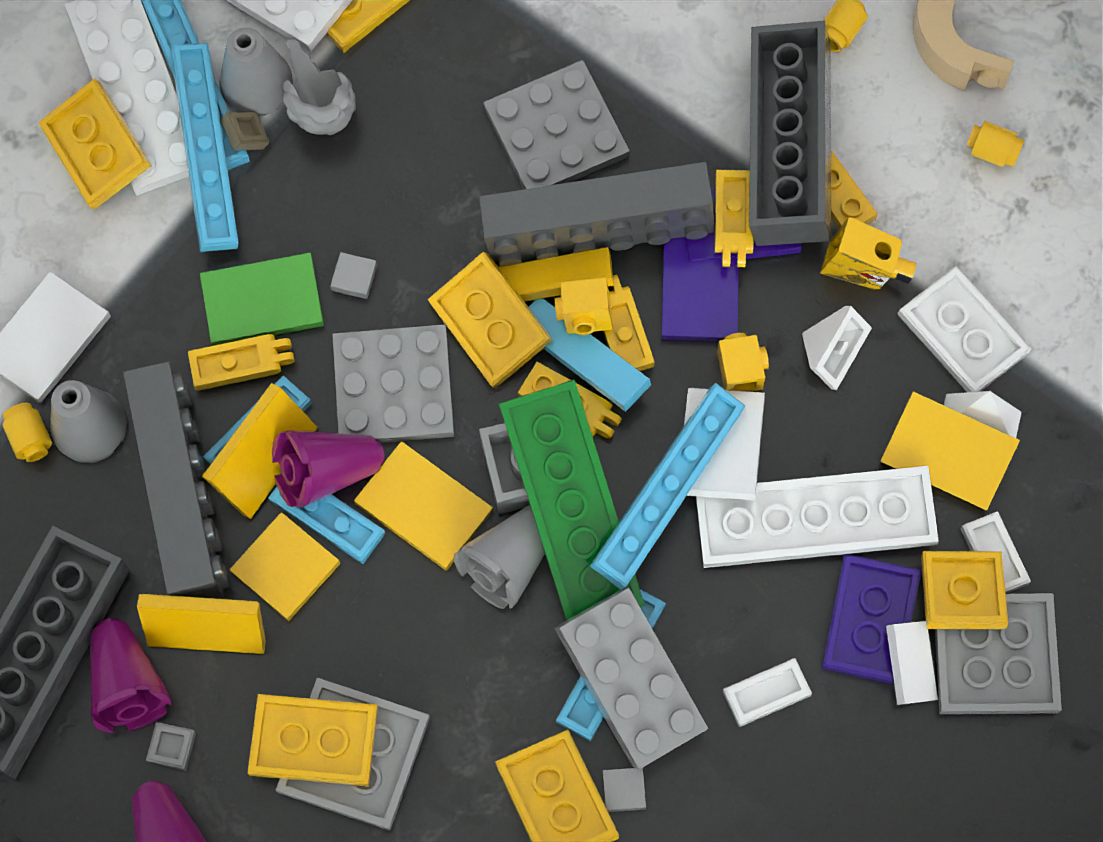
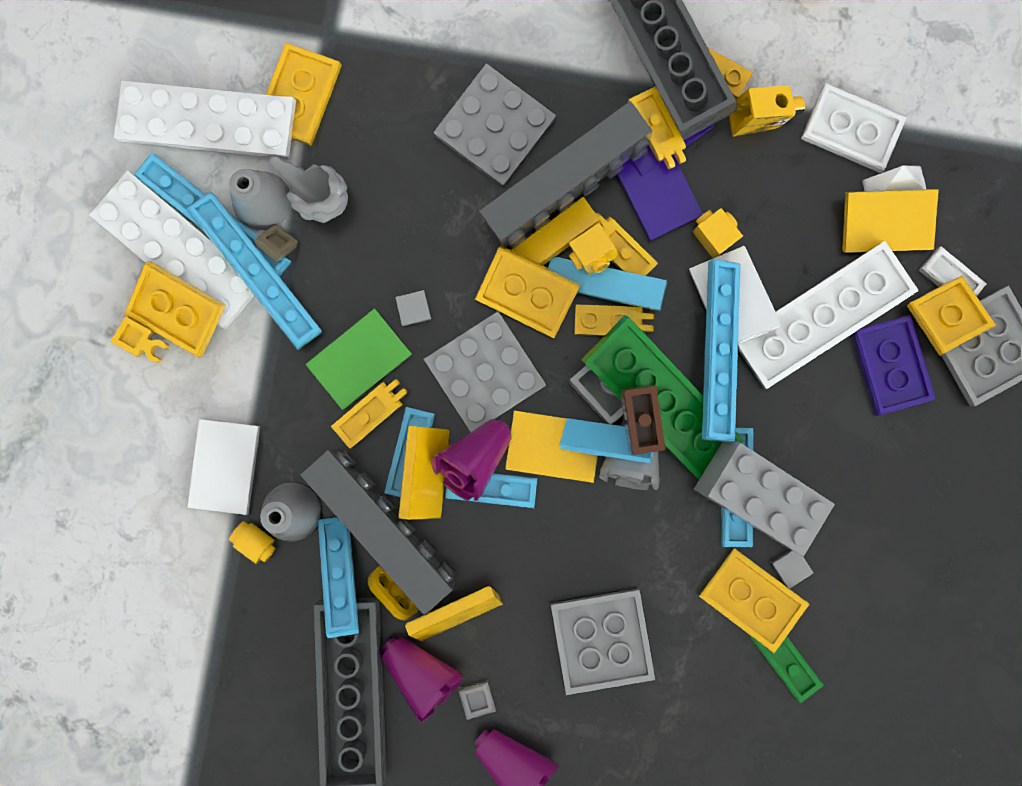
camera: 30 degrees left, 15 degrees up
(36, 155) = (137, 338): none -> yellow plate
(97, 512) = (337, 578): none -> medium azure tile
(144, 565) = (391, 594): none -> yellow plate
(285, 566) = (483, 538): yellow tile -> none
(313, 740) = (573, 650): yellow tile -> none
(484, 516) = (599, 440): none -> medium azure tile
(528, 495) = (642, 419): none -> reddish brown brick
(767, 692) = (850, 452): white tile -> none
(834, 344) = (771, 184): white slope -> none
(911, 662) = (938, 383): white tile -> none

